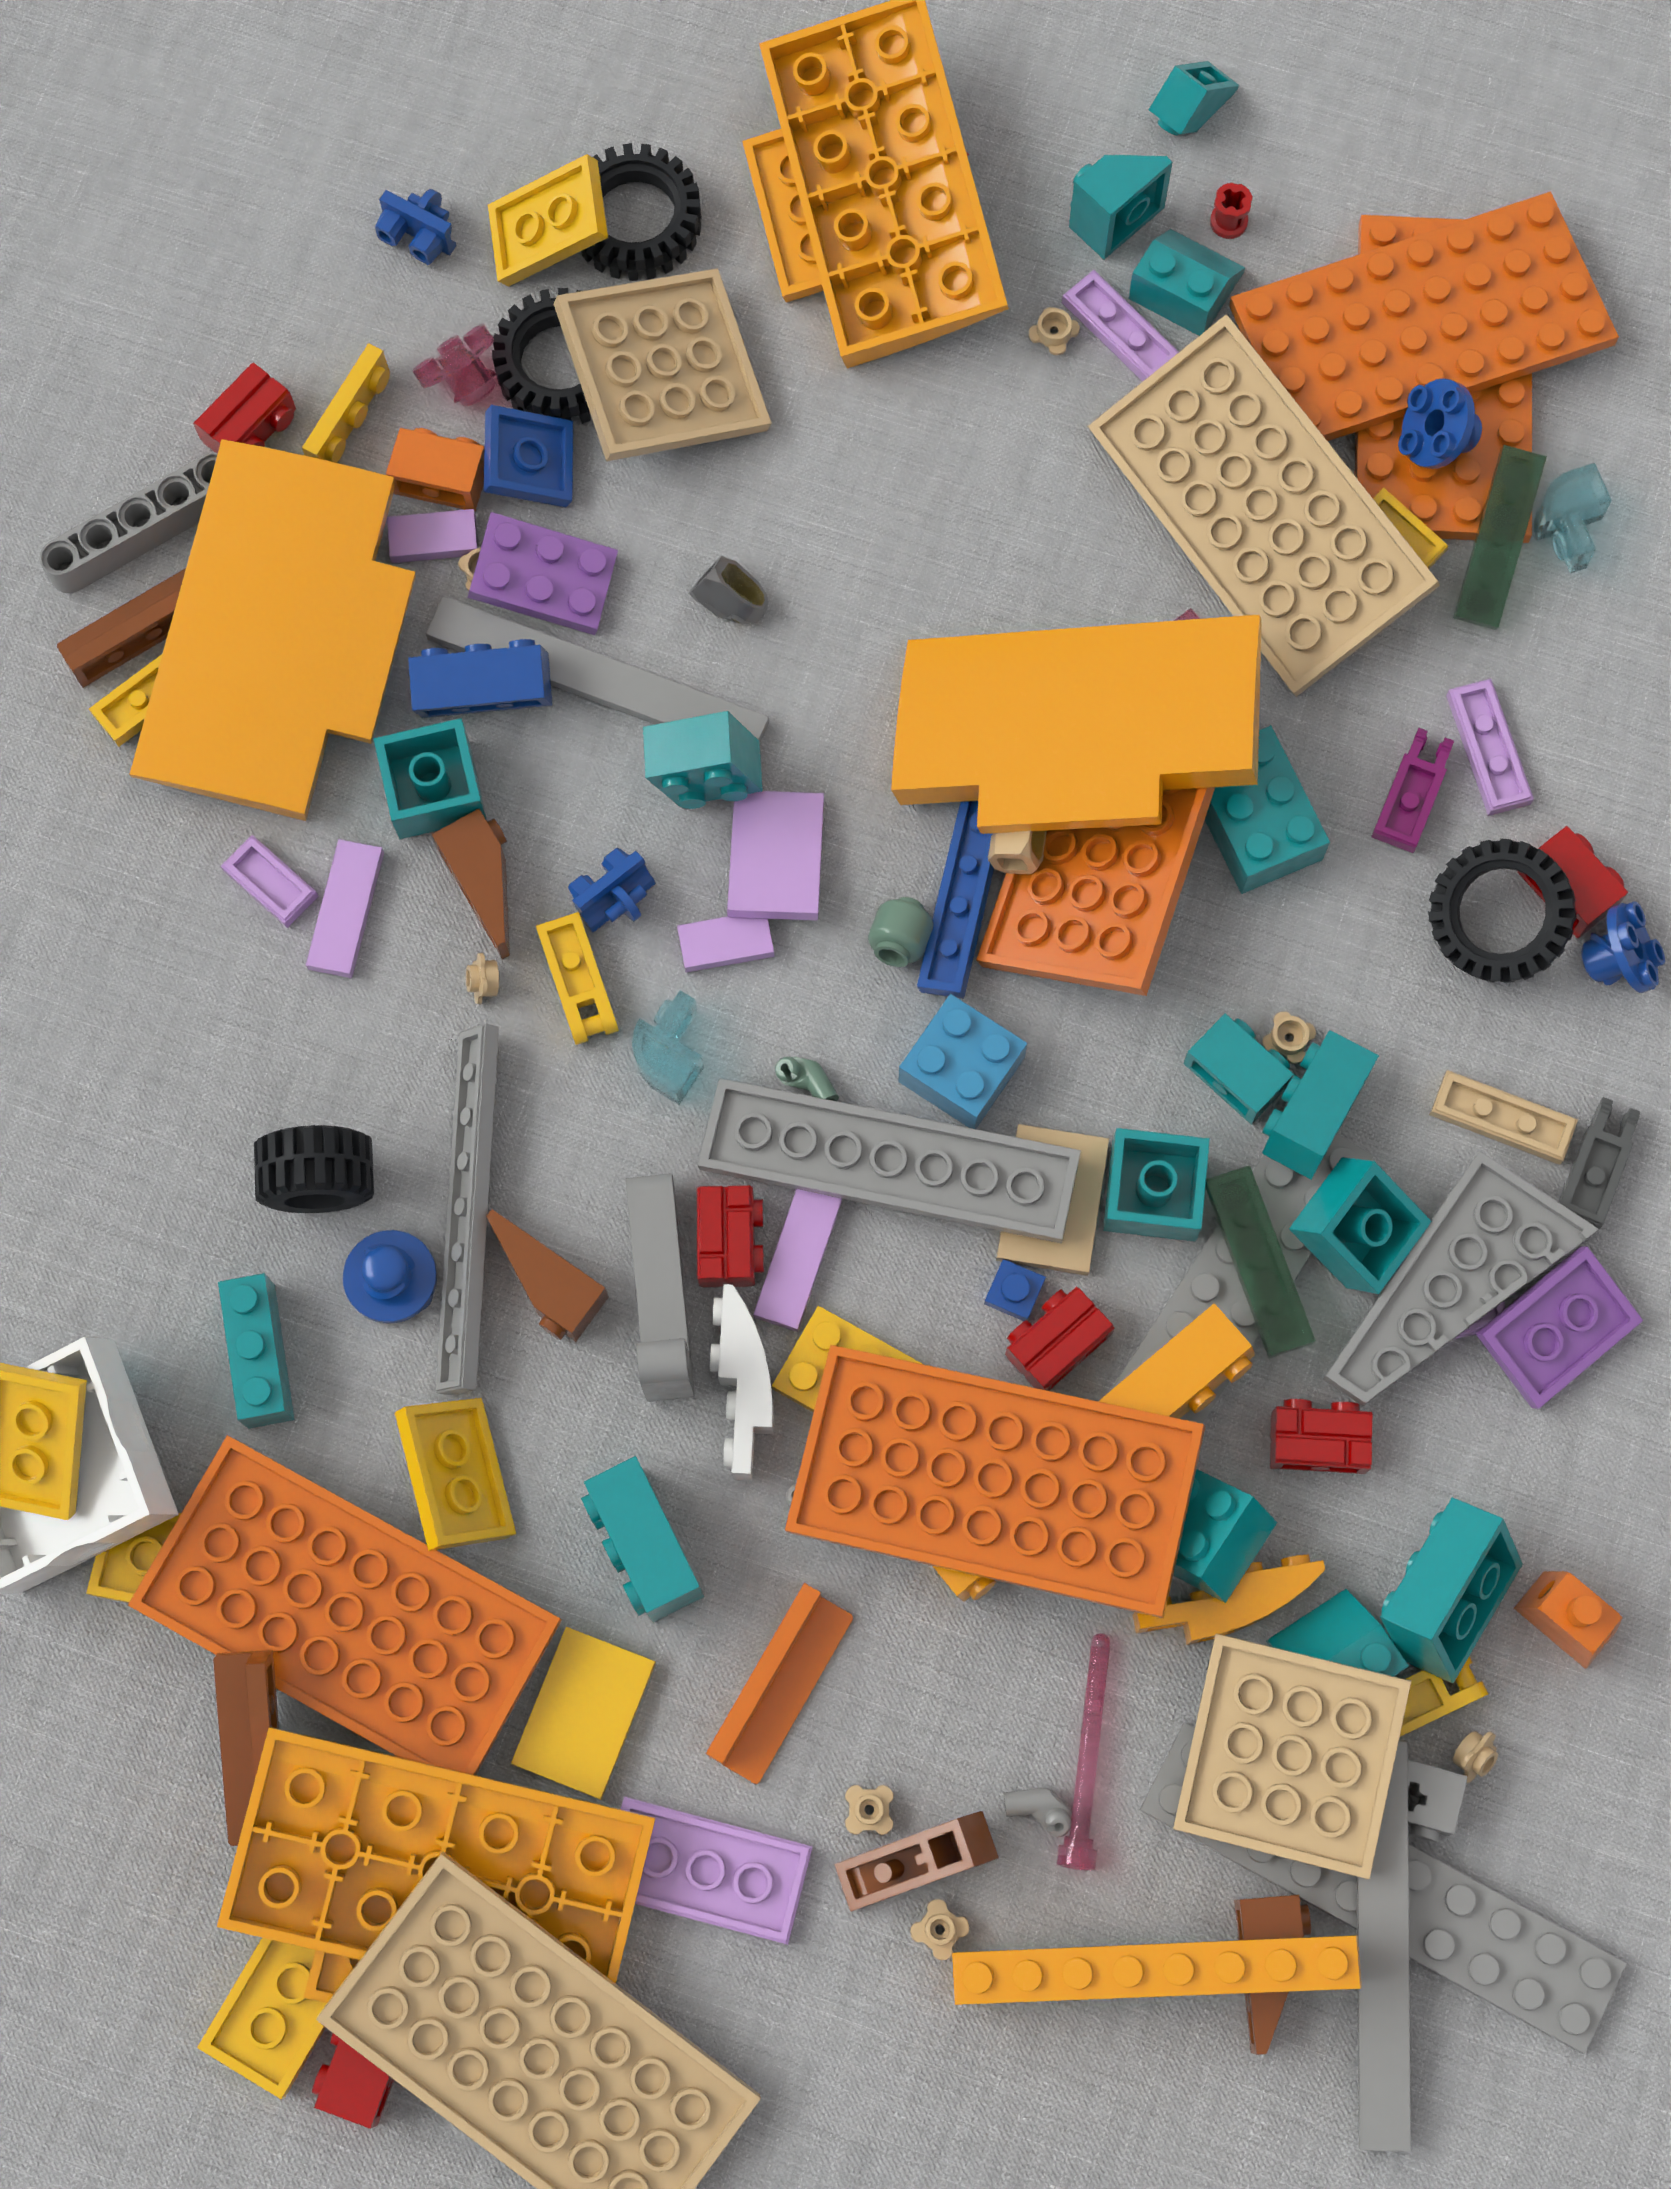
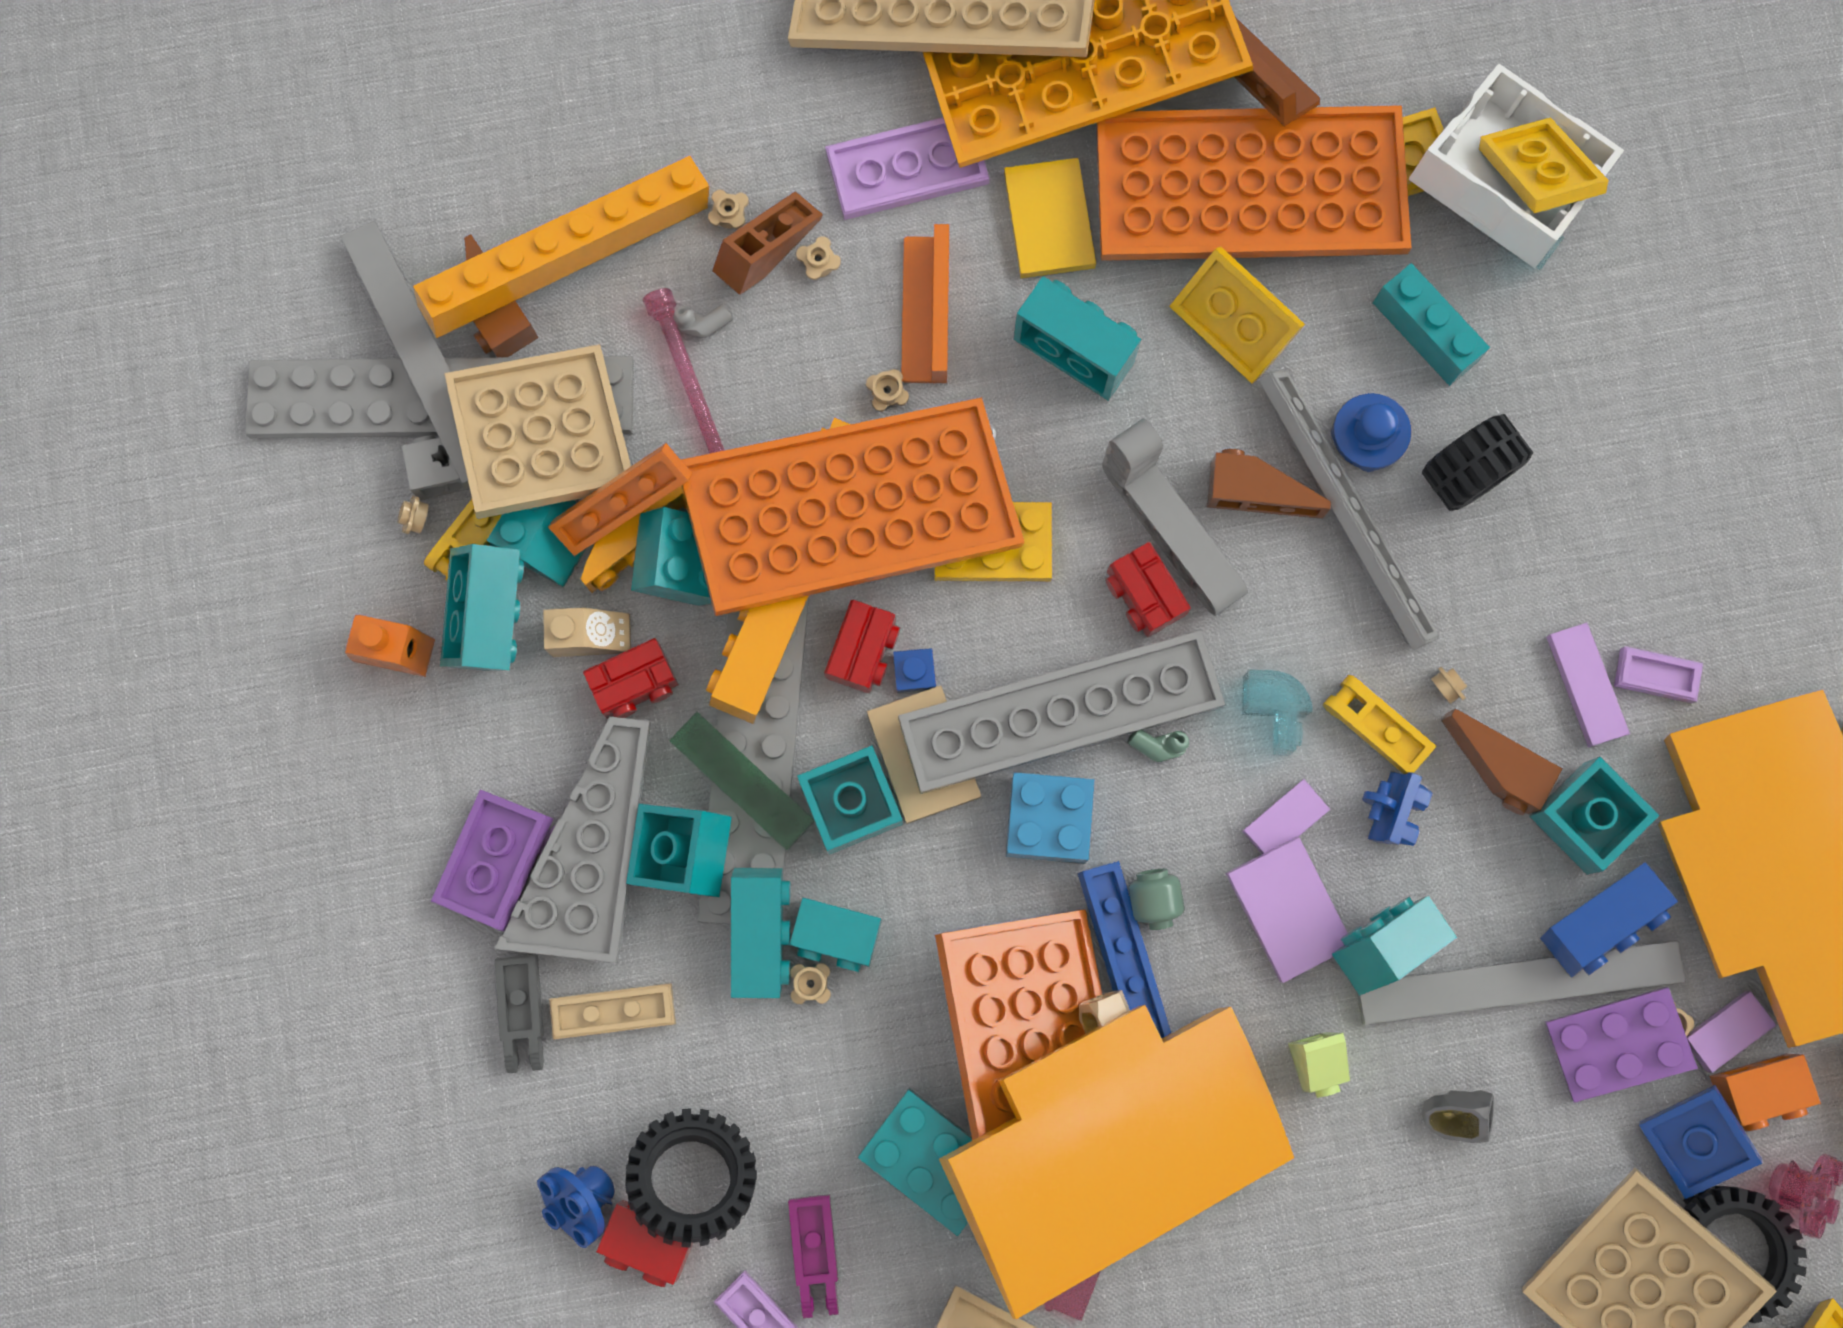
camera: 150 degrees right, 5 degrees up
(741, 1364) = (1080, 506): white slope -> none
(797, 1259) = (1086, 604): lavender tile -> none
(833, 704) = (1321, 1063): none -> yellowish green slope
(869, 1599) = (879, 382): none -> tan plate
(1243, 1614) = (620, 499): none -> orange plate
(1345, 1516) = (585, 632): none -> tan slope

